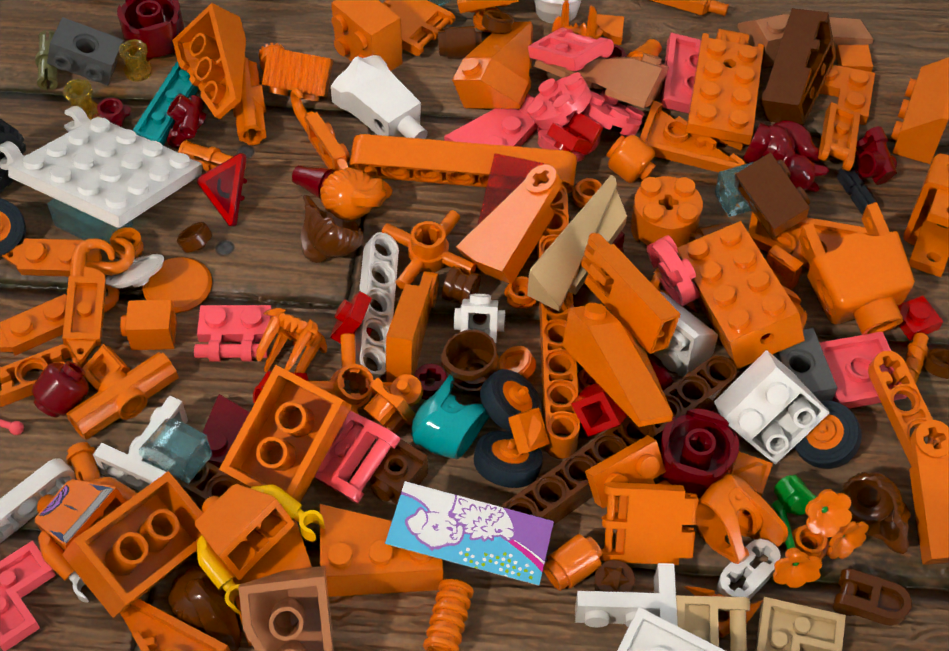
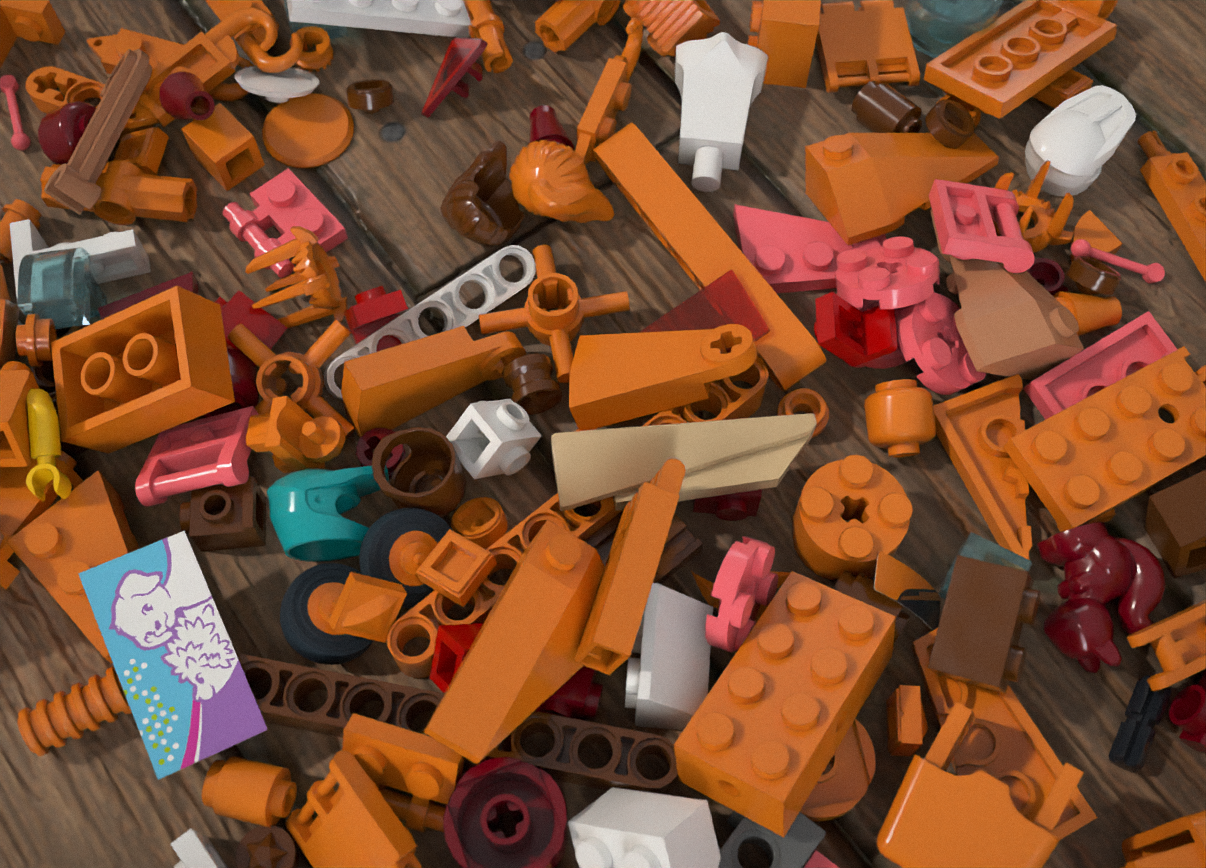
camera: 50 degrees right, 10 degrees up
(108, 395) = (75, 182): none -> nougat piece
(113, 309) = (186, 97): none -> dark red cone
(205, 478) = (35, 339): none -> orange plate
(544, 378) = (456, 567): none -> orange tile
(633, 38) = (1093, 276): none -> reddish brown tile
(647, 20) = (1151, 273): none -> coral hinge
(718, 215) = (907, 588): none -> sticker

